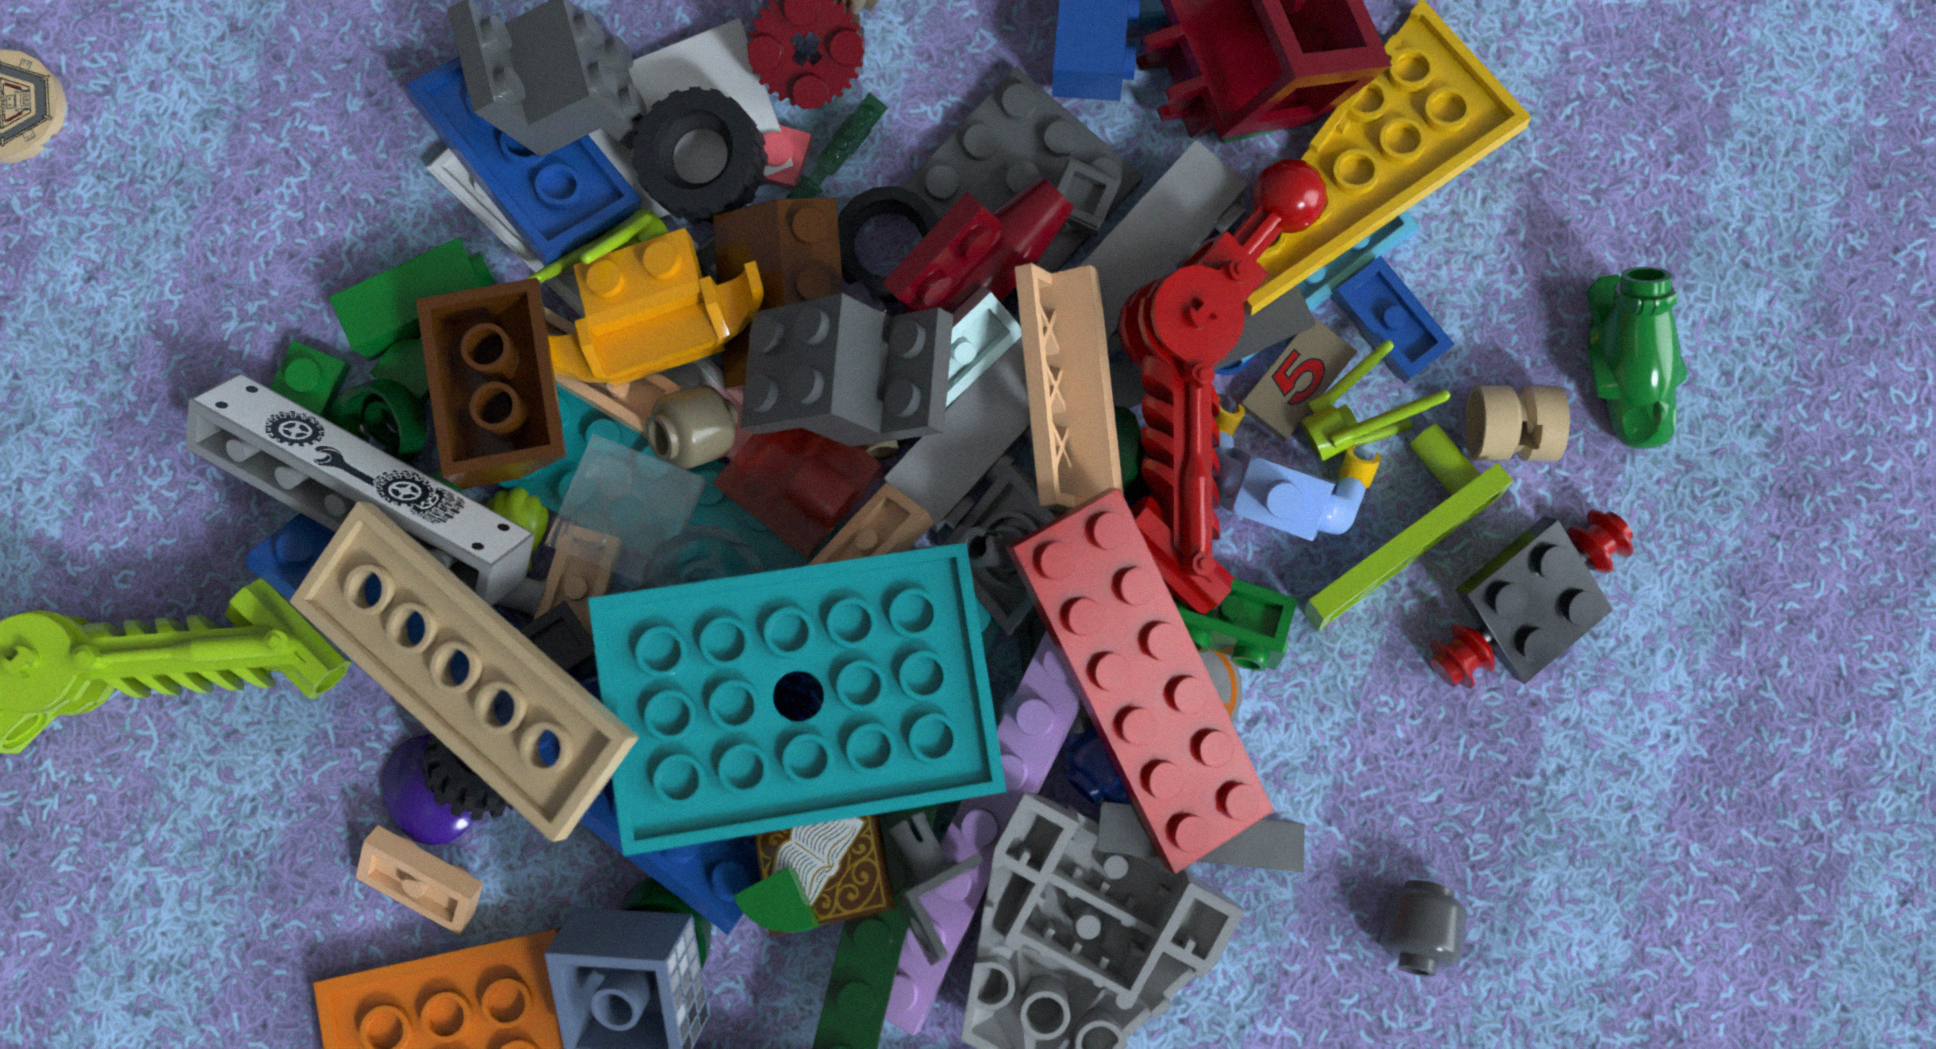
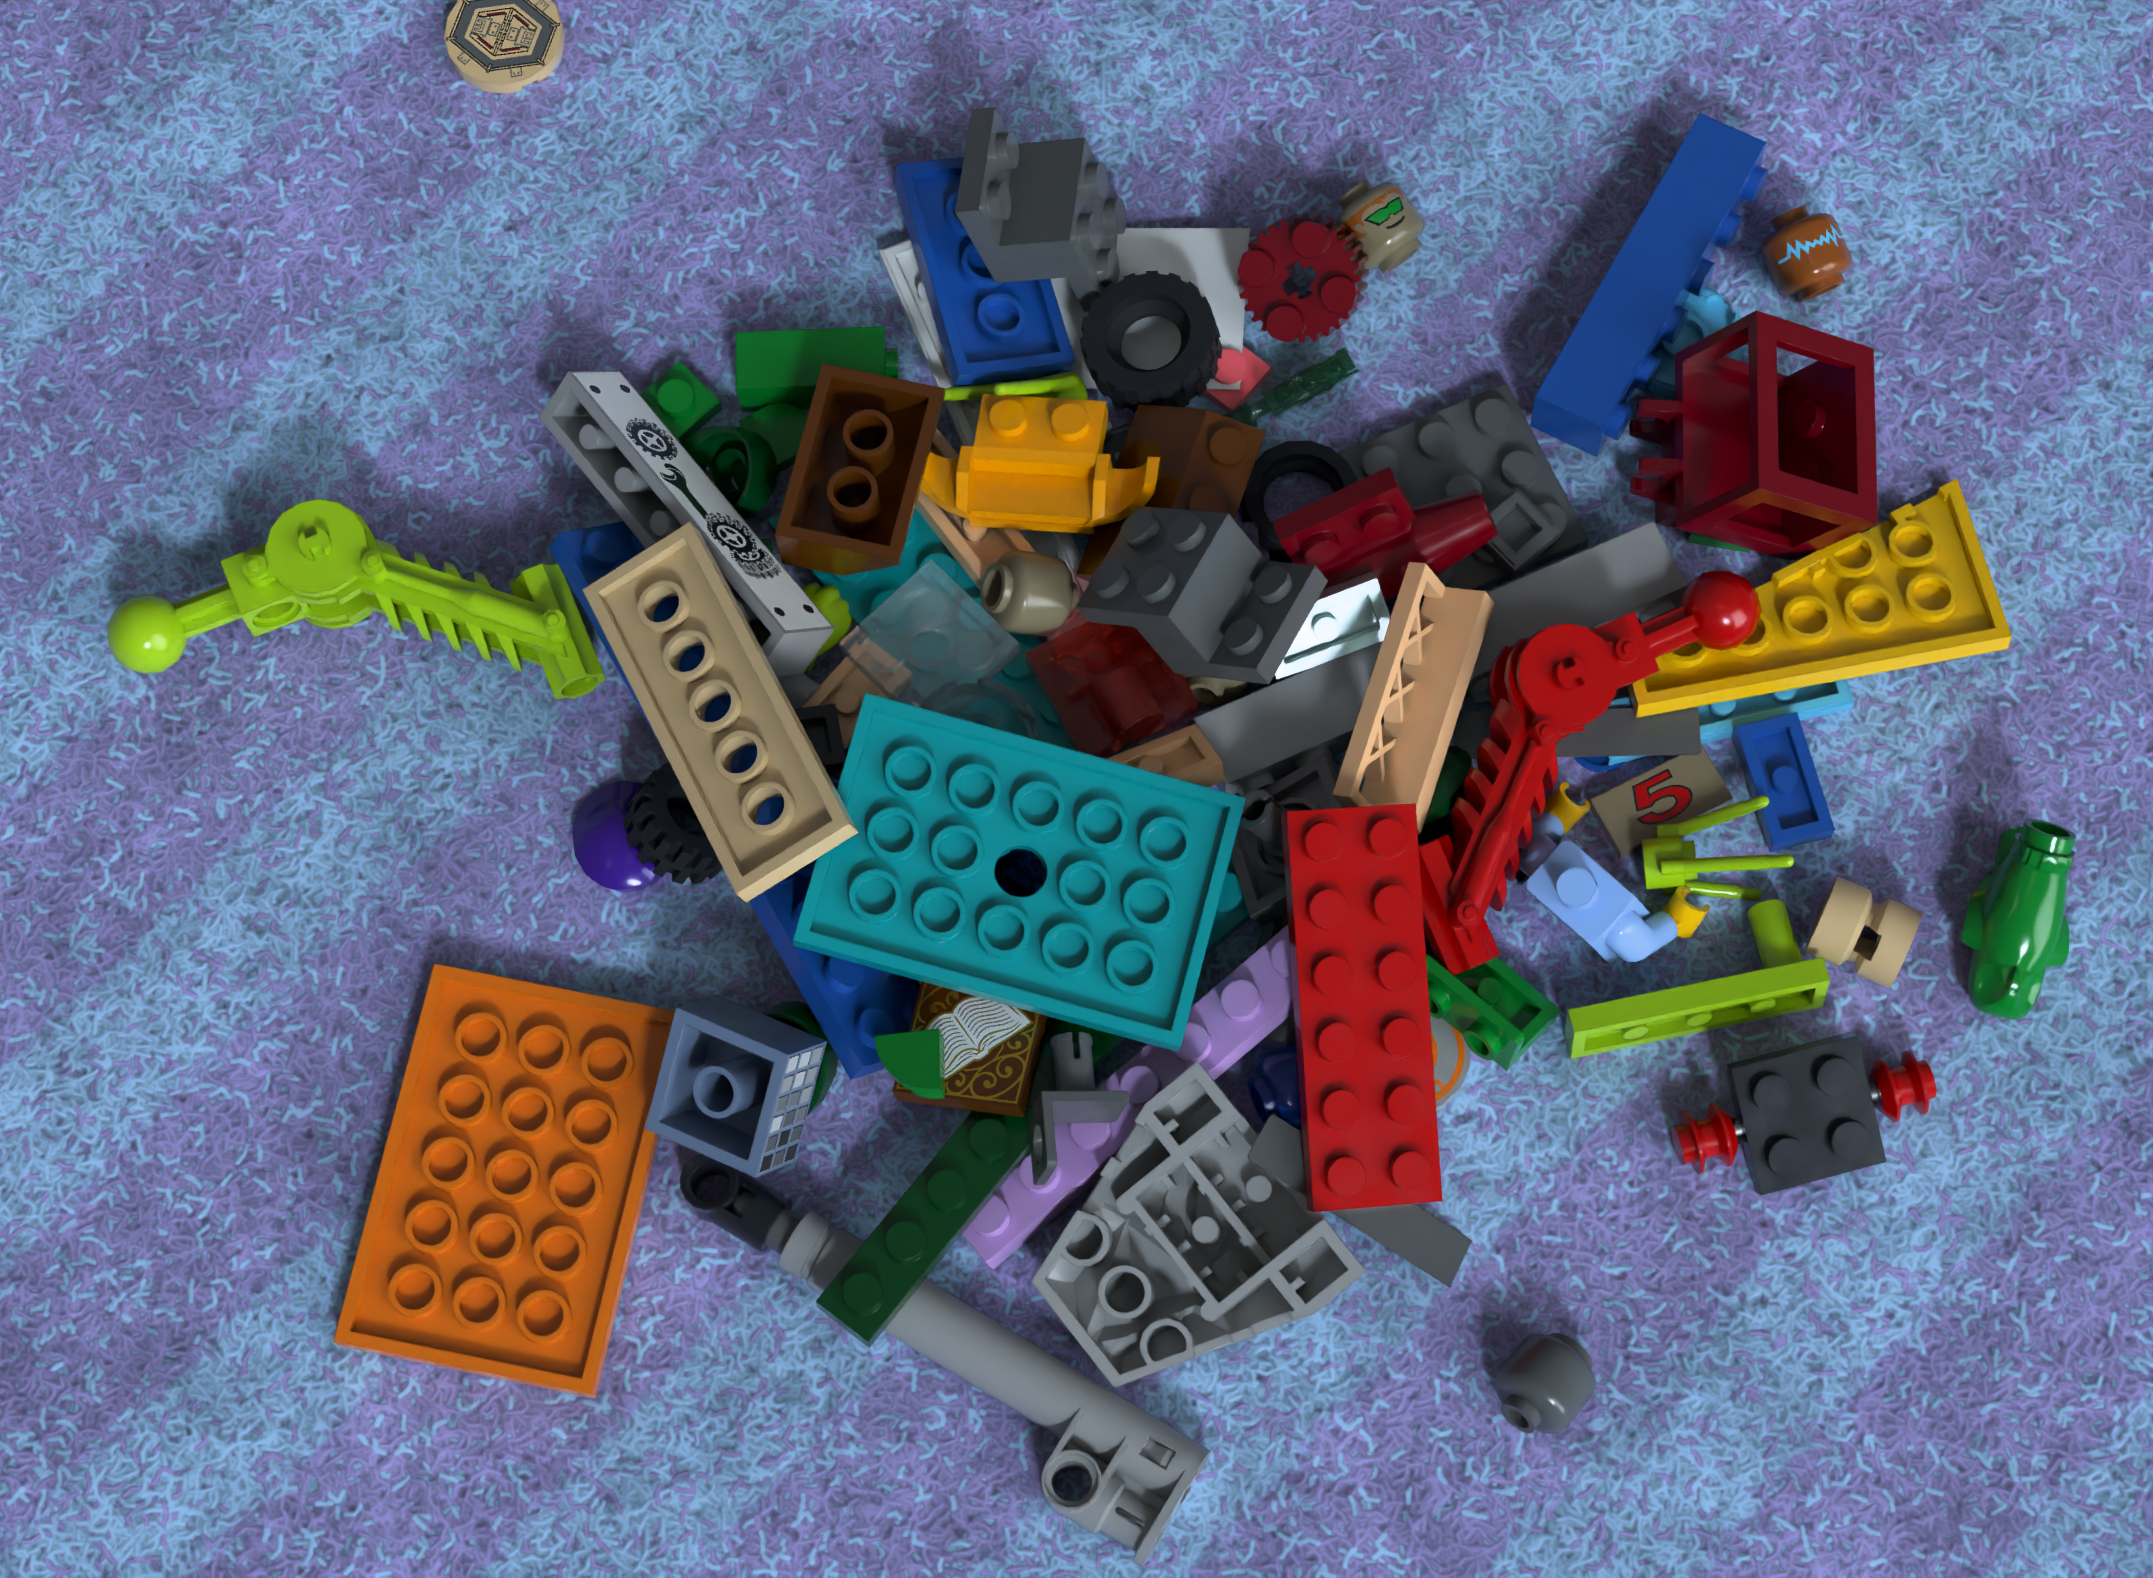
camera: 30 degrees right, 10 degrees down
(419, 879) = (574, 913): light nougat plate -> none

